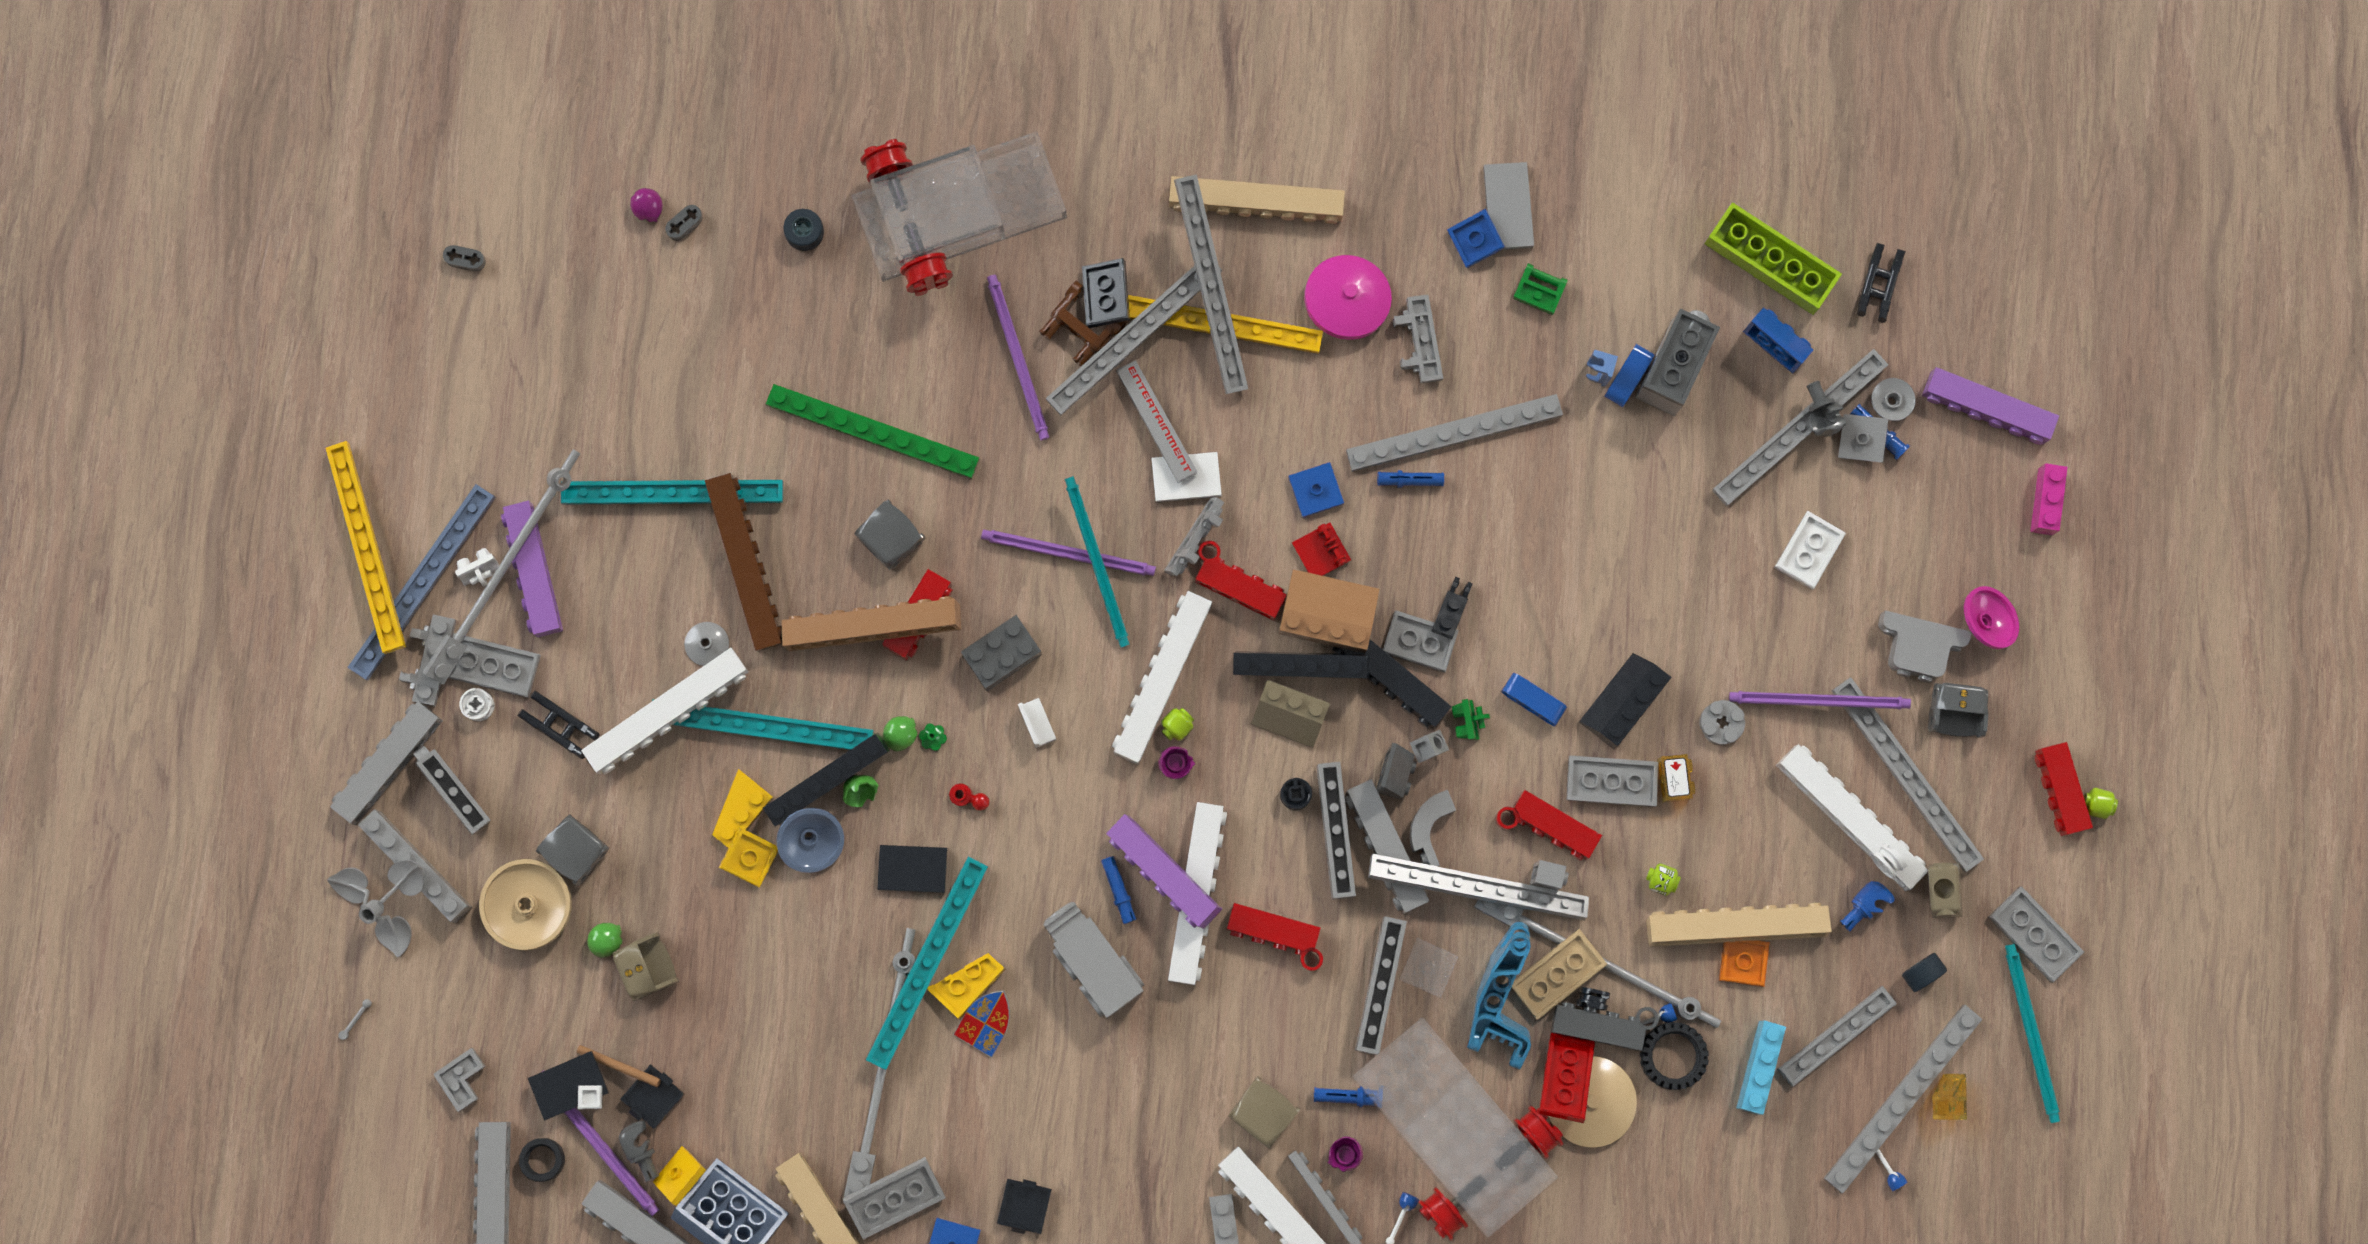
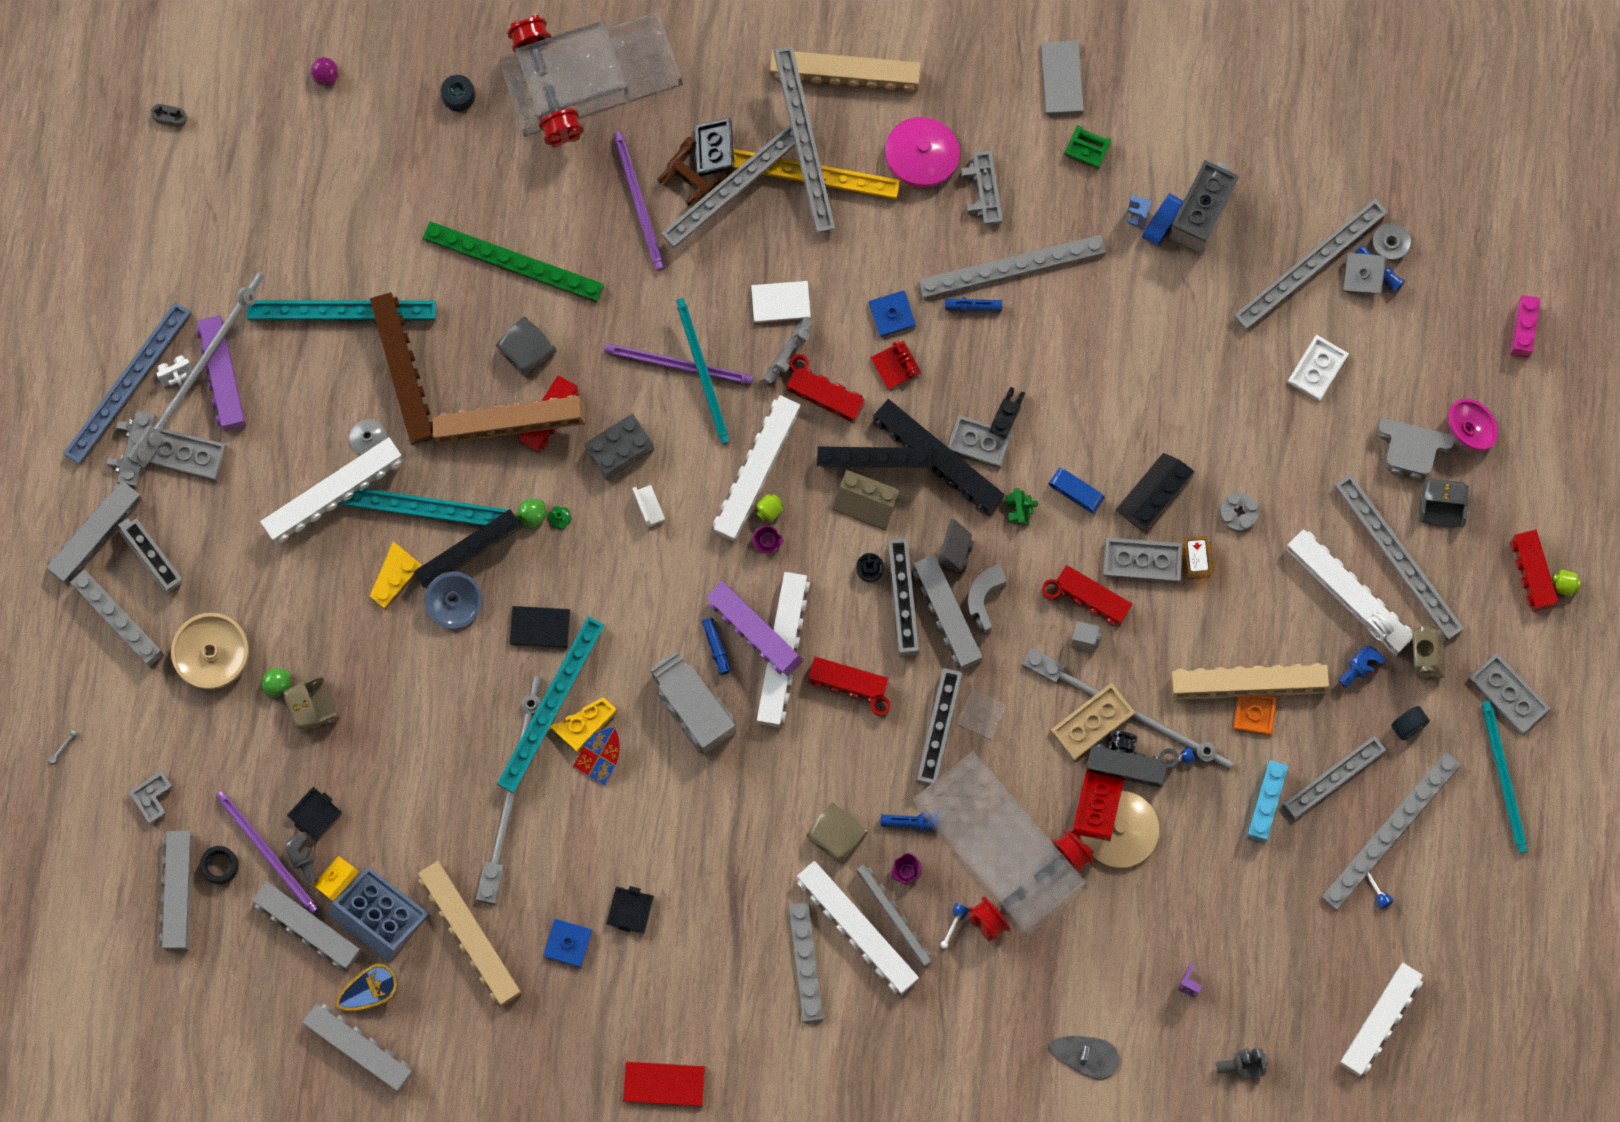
camera: 10 degrees right, 5 degrees down
(352, 885) = (63, 632): light grey plant -> none
(365, 547) = (81, 353): yellow plate -> none
(477, 704) = (172, 485): white wheel -> none
(555, 711) = (229, 505): black piece -> none
(558, 1087) = (243, 802): black tile -> none
(573, 850) = (251, 606): dark grey piece -> none
(589, 1097) = (261, 811): white tile -> none
(621, 1067) = (286, 787): medium nougat bar -> none
(680, 219) = (355, 83): dark grey beam -> none
(749, 857) = (400, 615): yellow plate -> none
(859, 789) = (495, 559): bright green hair -> none
(894, 1198) = (518, 900): light grey plate -> none
(979, 801) = (598, 571): red plate -> none
(1156, 421) = (756, 255): light grey tile -> none
(1329, 611) = (900, 413): medium nougat slope -> none
(1429, 746) = (985, 527): light grey brick -> none
(1476, 238) = (1033, 104): blue plate -> none
(1478, 887) = (1025, 645): plate -> none
(1507, 961) = (1047, 708): dark azure piece -> none
(1663, 879) = (1185, 642): lime head -> none
(1699, 1046) = (1184, 813): black tyre -> none
(1773, 258) = (1288, 122): lime brick -> none
(1778, 340) = (1292, 190): blue slope -> none
(1820, 700) = (1313, 492): medium lavender piece -> none
(1824, 412) = (1330, 250): dark grey piece -> none
(1891, 276) = (1392, 138): black piece -> none
(1950, 1098) = (1431, 830): clear yellow slope -> none
(1990, 406) = (1475, 247): medium lavender brick -> none

